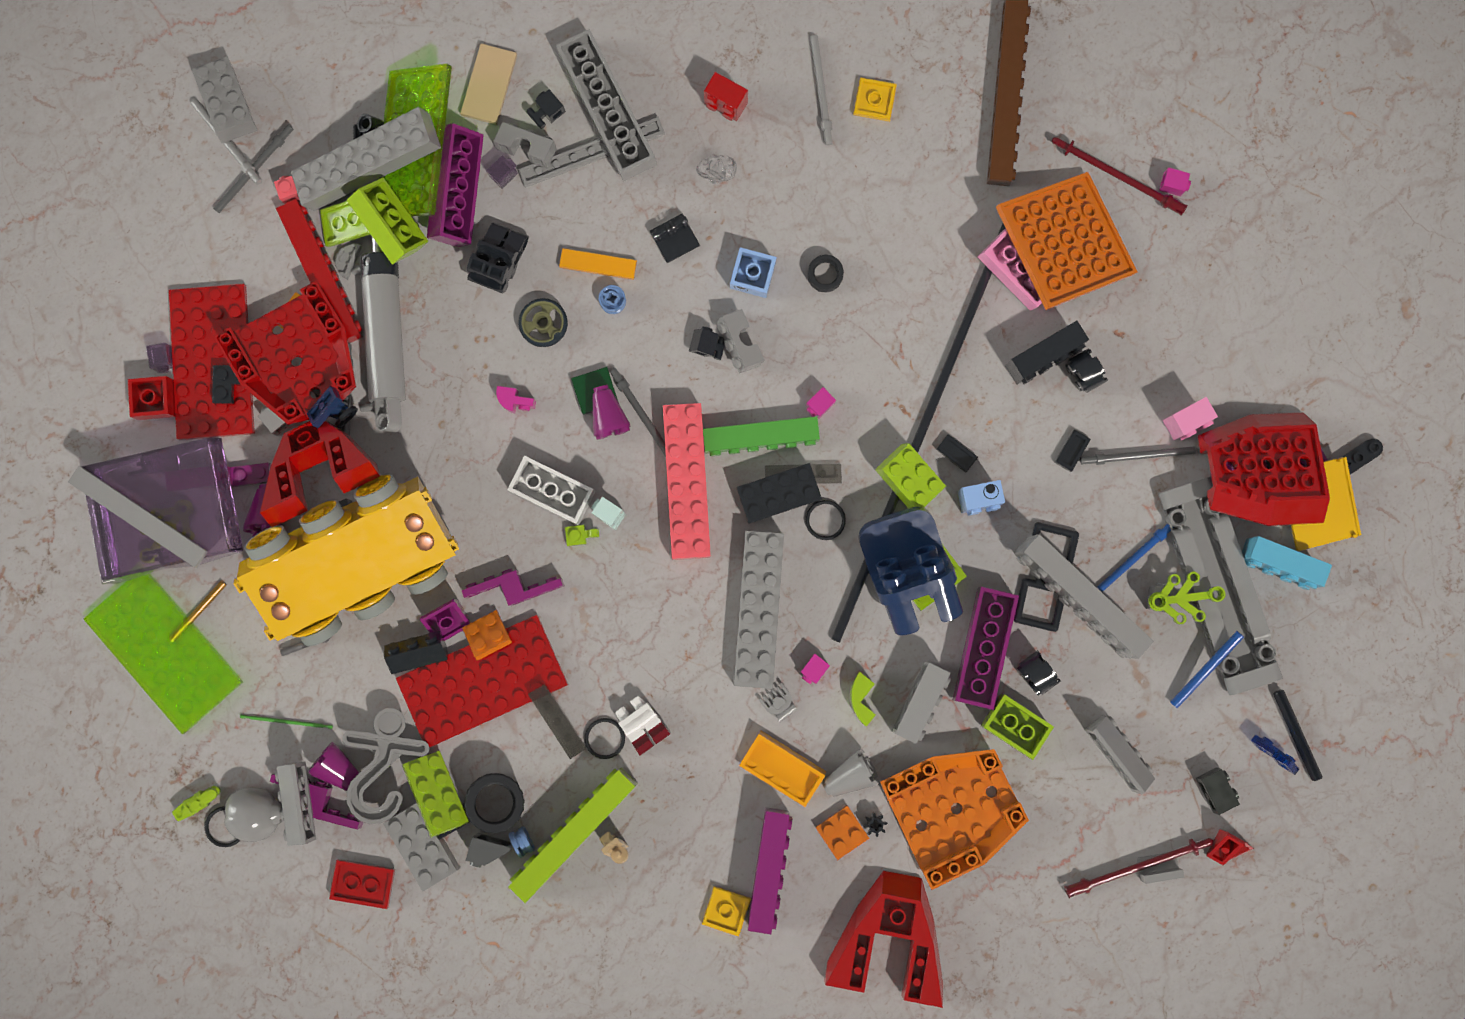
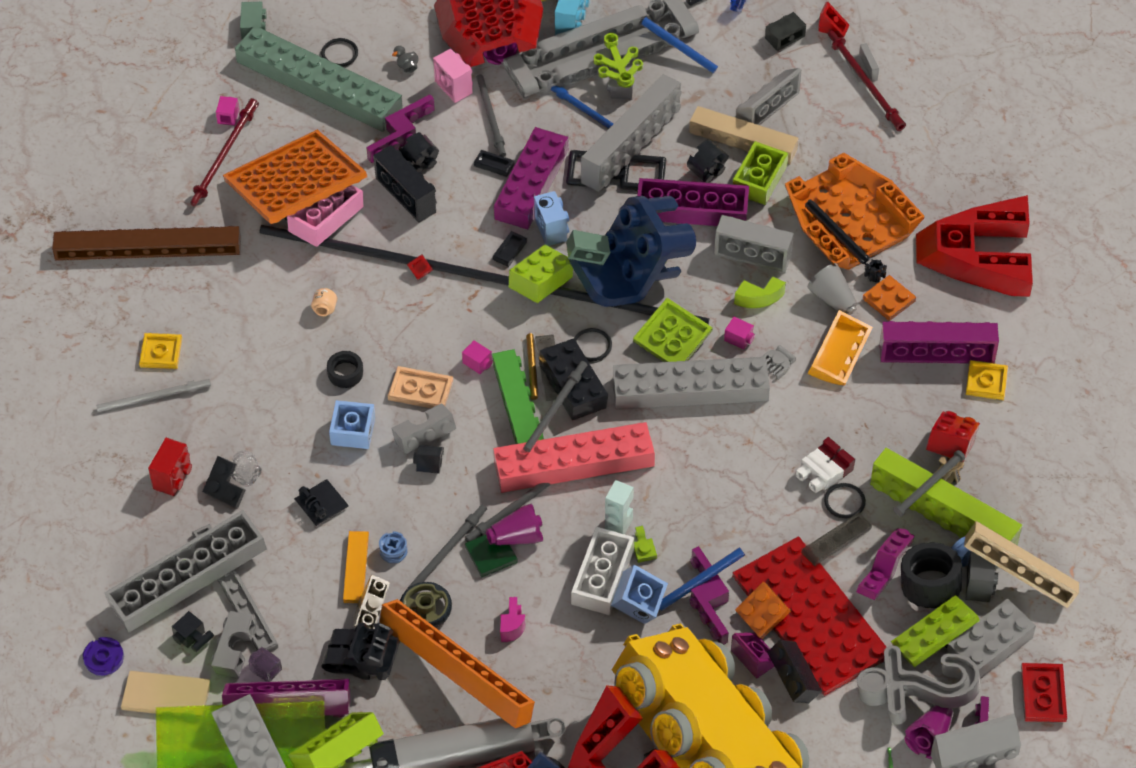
camera: 100 degrees left, 30 degrees down
(458, 338) = (457, 664): none -> orange brick
(484, 892) = (1021, 564): none -> tan brick
(516, 520) = (639, 594): none -> light blue brick
(516, 761) = (885, 563): none -> magenta bracket
(524, 581) = (701, 578): none -> blue piece
(538, 31) = (103, 656): none -> dark purple tile
(542, 269) = (371, 602): none -> dark tan slope
(584, 821) = (900, 509): none -> dark grey bar
(631, 375) = (471, 521): none -> dark grey bar
(647, 858) = (952, 434): none -> red brick
(704, 143) = (219, 484): none -> black plate
(765, 490) = (573, 379): none -> dark grey bar
(795, 345) = (420, 387): none -> light nougat tile
(806, 457) = (532, 366): none -> pearl gold bar
(820, 601) = (672, 333): none -> lime plate
(908, 259) = (324, 302): none -> light nougat head
(920, 525) = (588, 247): none -> sand green brick
(926, 793) = (837, 232): none -> black axle
(941, 359) = (420, 267): none -> red tile
(1043, 486) = (531, 177): none -> magenta brick
(1074, 718) = (739, 133): none -> tan brick
(1127, 358) = (400, 125): none -> magenta bracket
(1207, 278) = (318, 78): none -> sand green brick
(1221, 374) = (406, 61): none -> dark grey animal
(1249, 289) = (342, 40): none -> black tyre
(1299, 216) = (252, 15): none -> sand green brick

